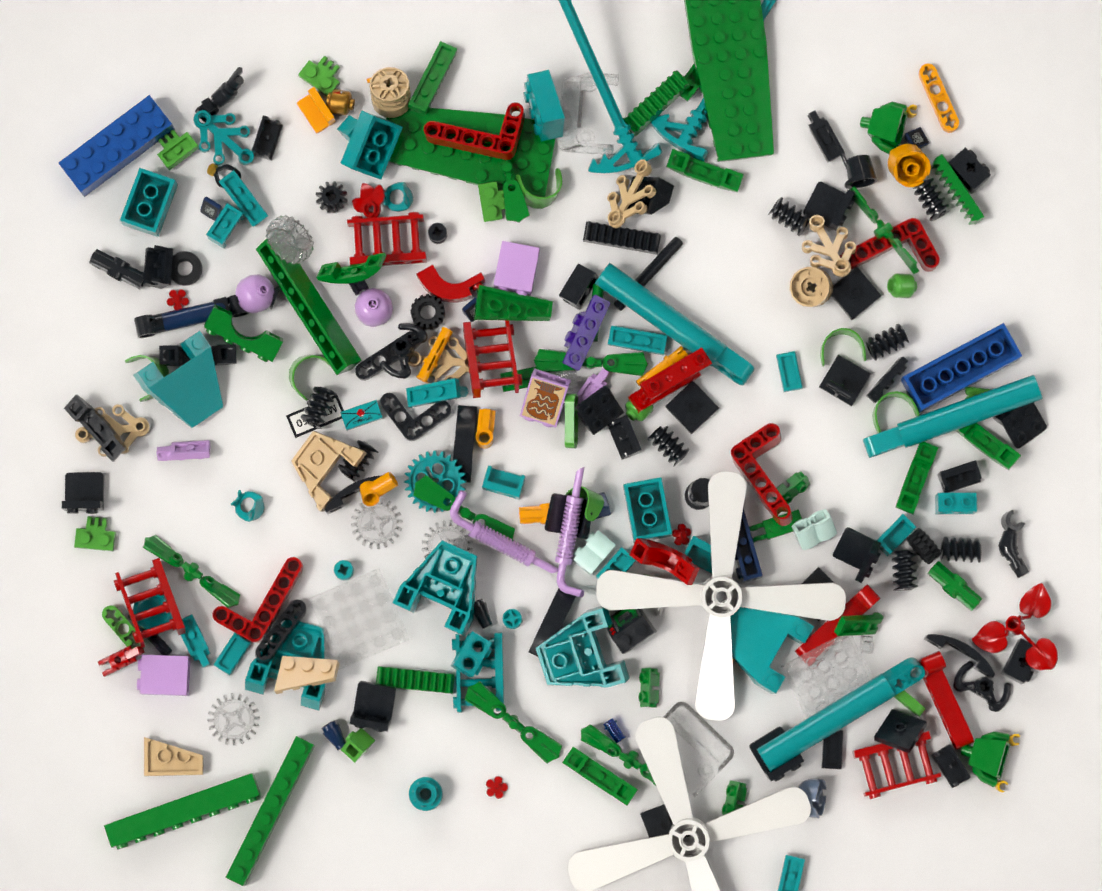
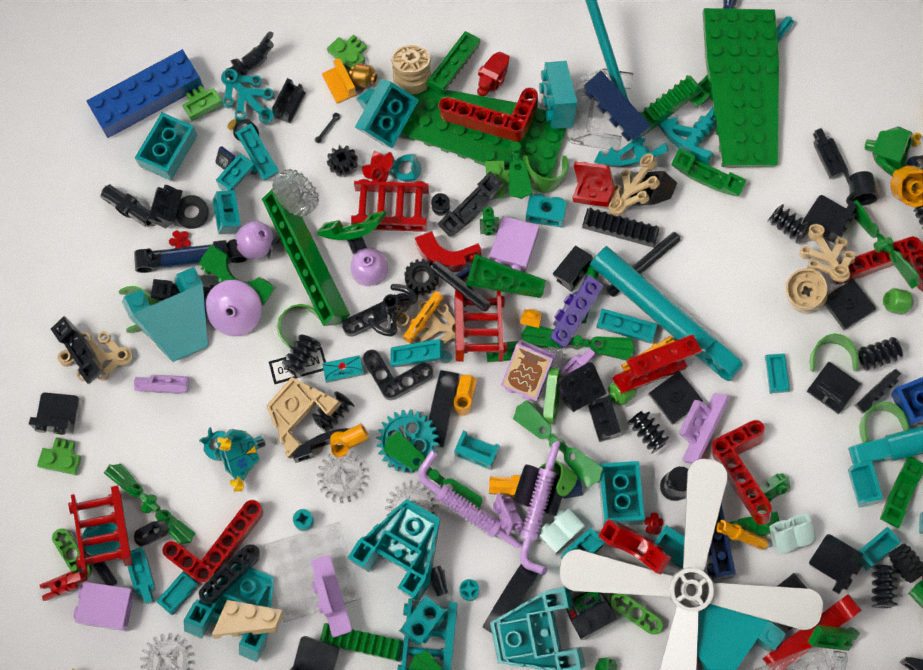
camera: 10 degrees right, 10 degrees down
(197, 598) = (152, 536): none -> black beam
(221, 266) = (226, 212): none -> teal brick
(246, 356) = (241, 299): none -> lavender dish
(272, 514) = (239, 454): none -> teal torso
(317, 148) = (336, 116): none -> black hinge
(382, 644) = (330, 596): none -> lavender bracket
(468, 232) = (471, 206): none -> black slope
(468, 320) = (460, 286): none -> black axle
(474, 85) = (493, 73): none -> red hinge
(489, 250) = (489, 224): none -> green hinge
(535, 234) = (553, 218): none -> teal brick
(535, 535) = (504, 507): none -> lavender hinge
(542, 343) = (531, 318): none -> light orange plate
(590, 198) = (594, 184): none -> red bracket
(605, 116) = (615, 104): none -> dark blue brick
(607, 487) = (582, 465): none -> green piece
(682, 634) = (651, 617): none -> bright green beam
(718, 433) = (701, 424): none -> lavender bracket
(760, 536) = (736, 533): none -> light orange pin
(880, 473) = (865, 484): none -> teal panel

